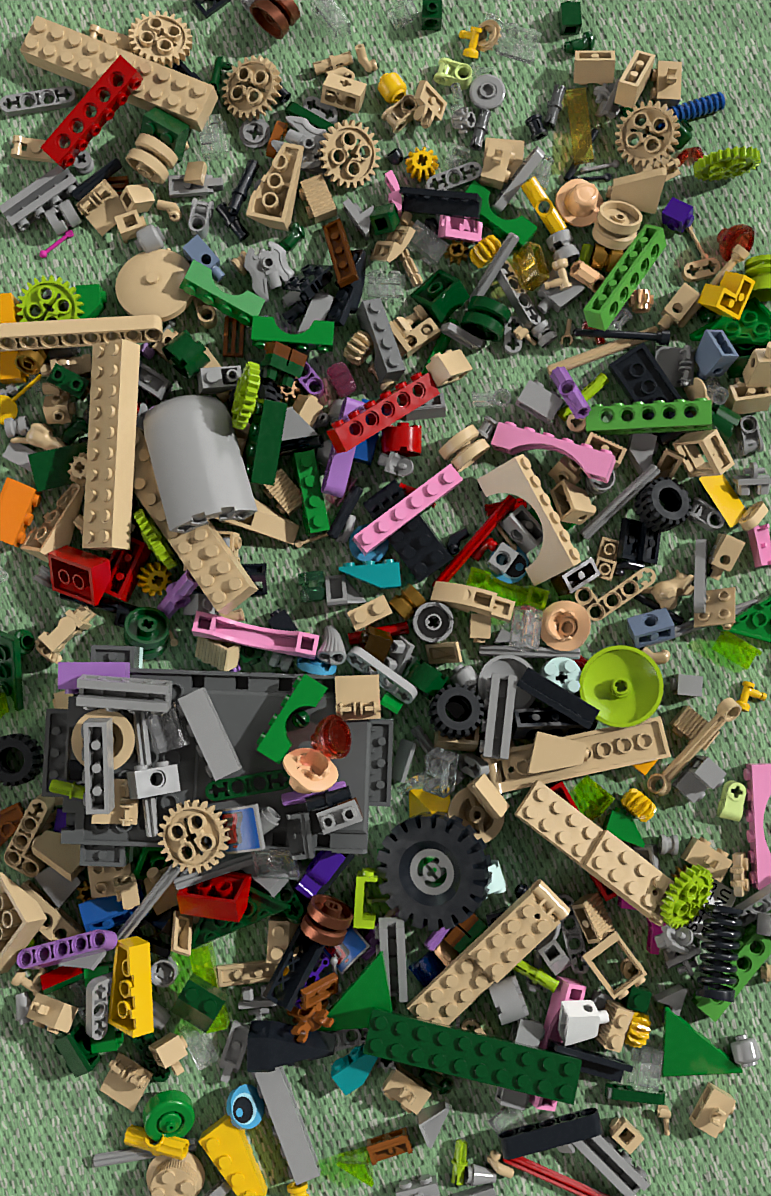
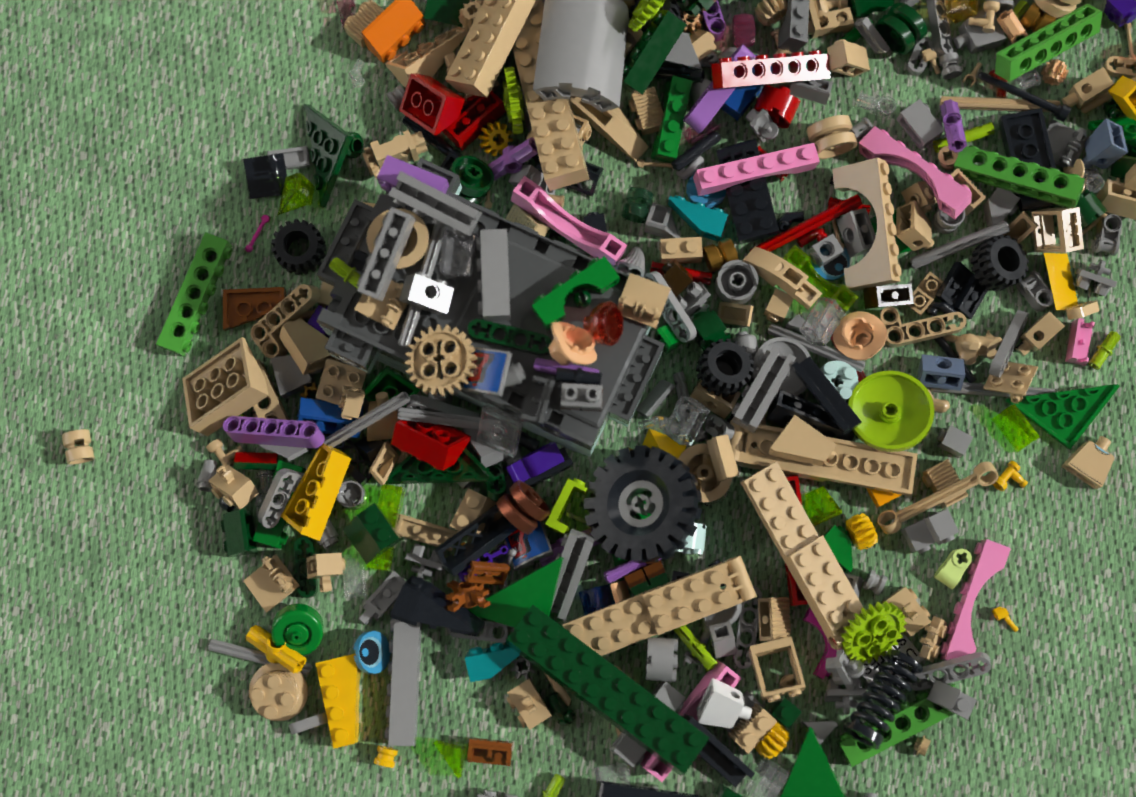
camera: 30 degrees right, 5 degrees down
(431, 1120) = (539, 744): light grey slope -> none

